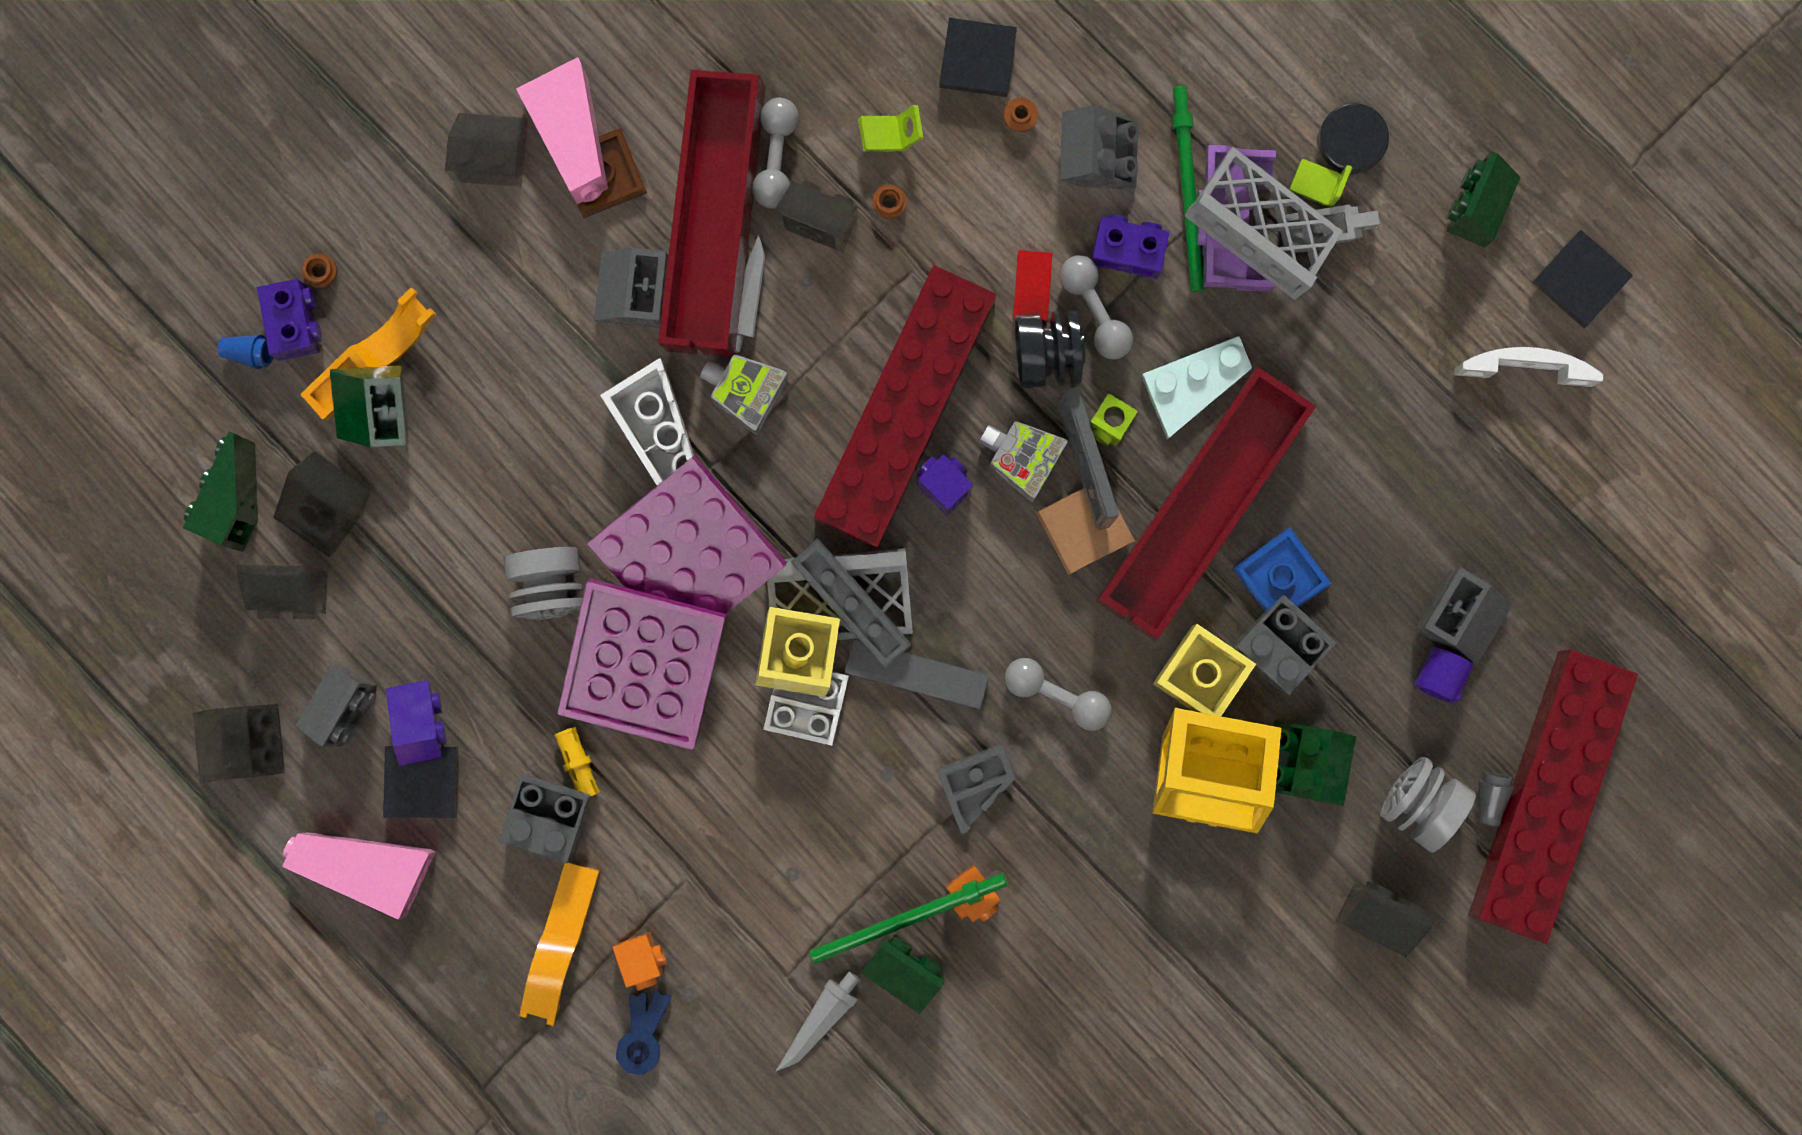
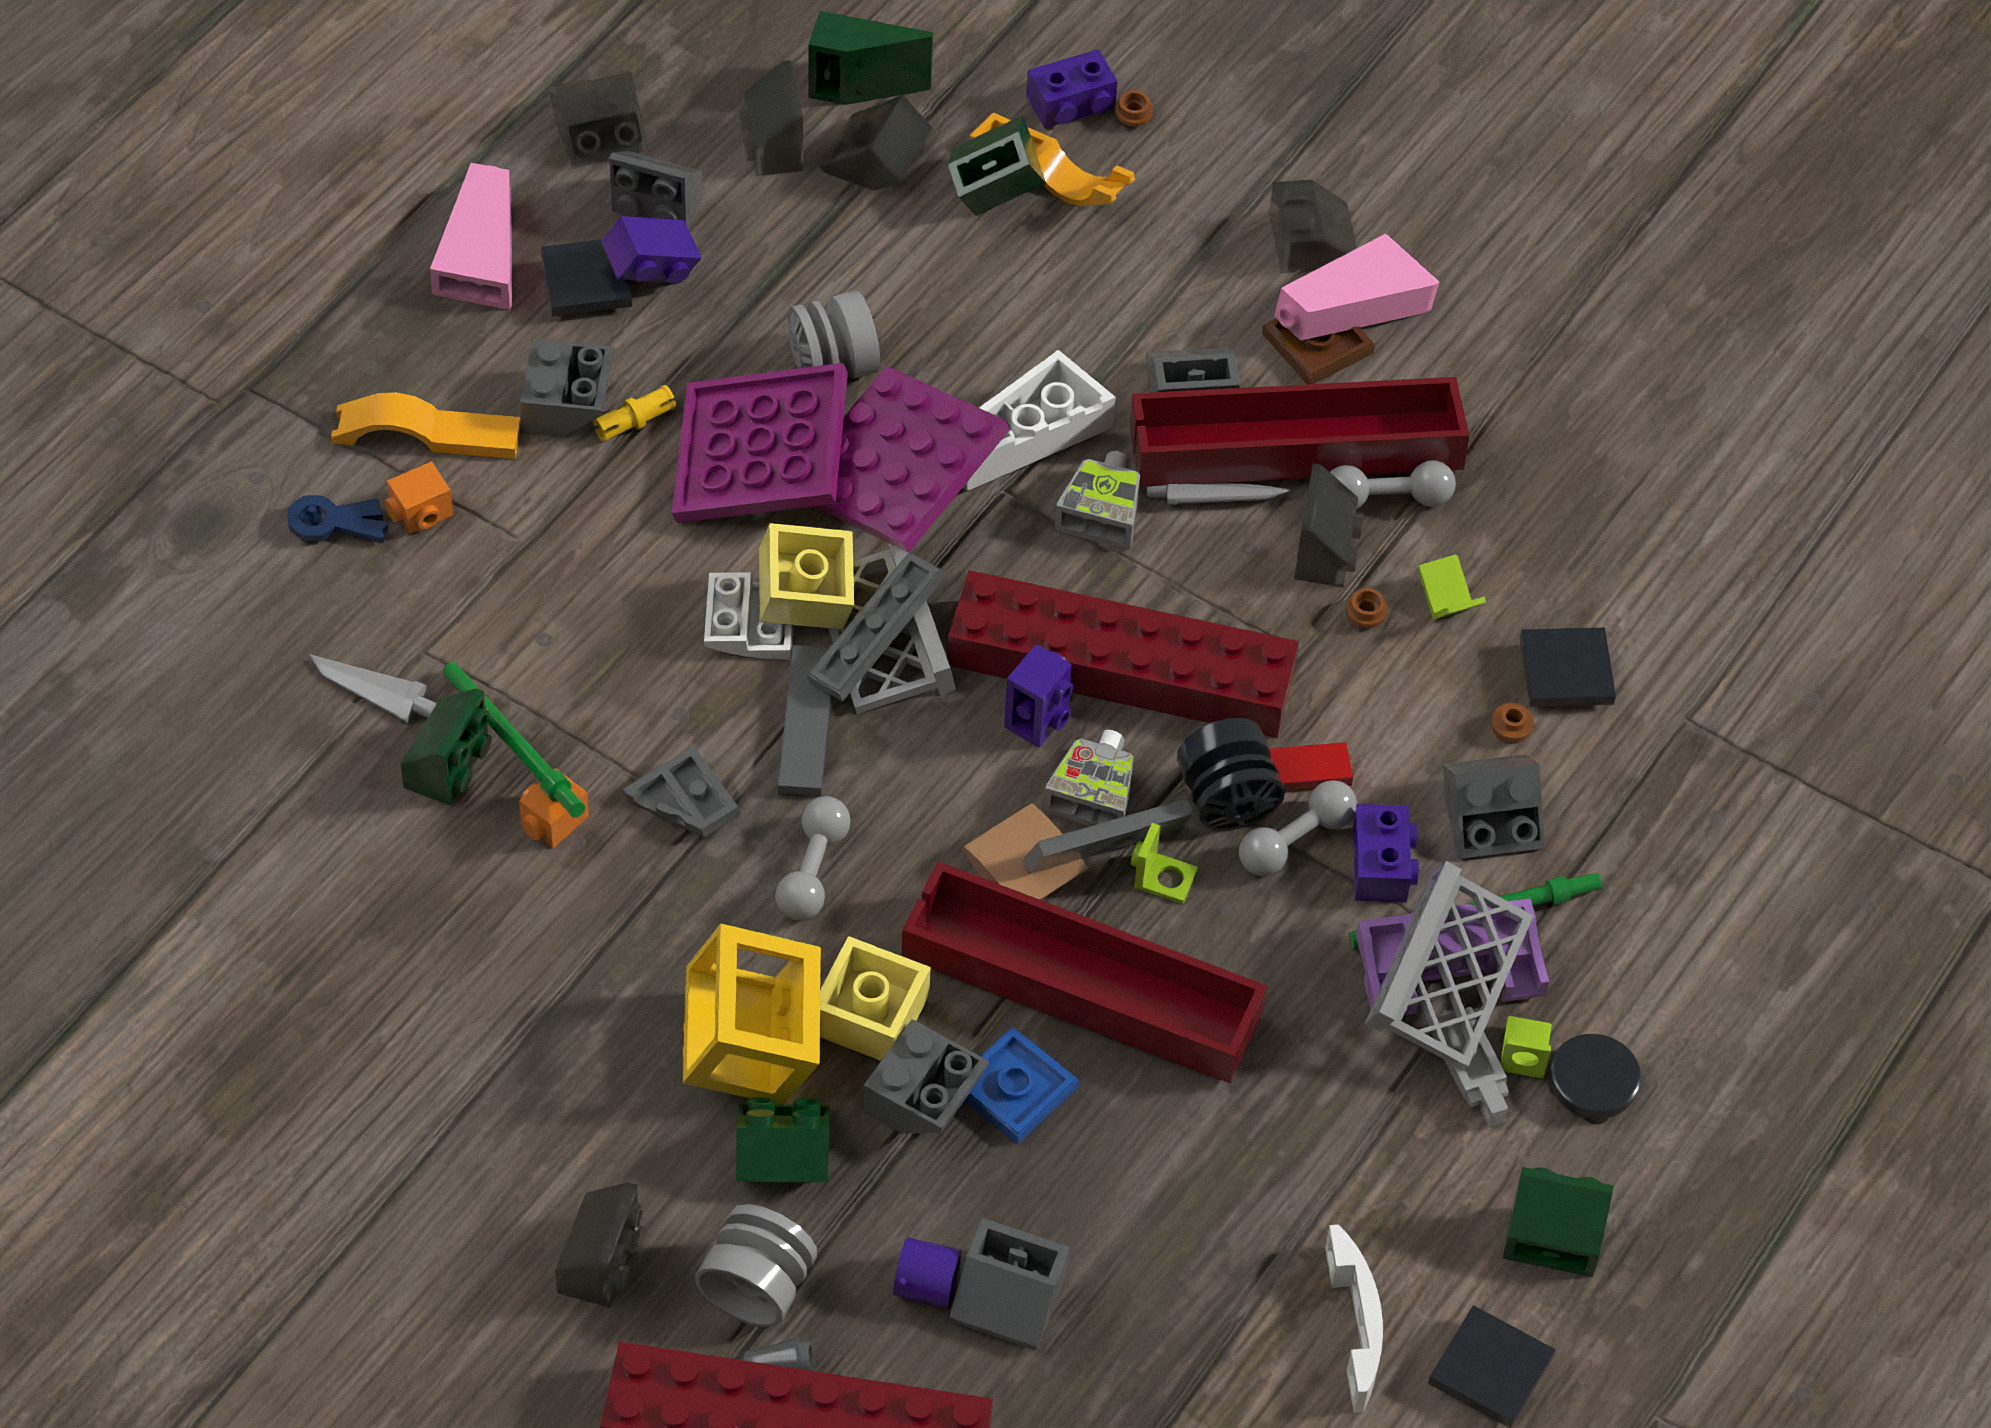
camera: 75 degrees right, 30 degrees down
(246, 350) = (1026, 57): blue cone -> none
(1193, 382) = (1231, 940): light aqua wing -> none

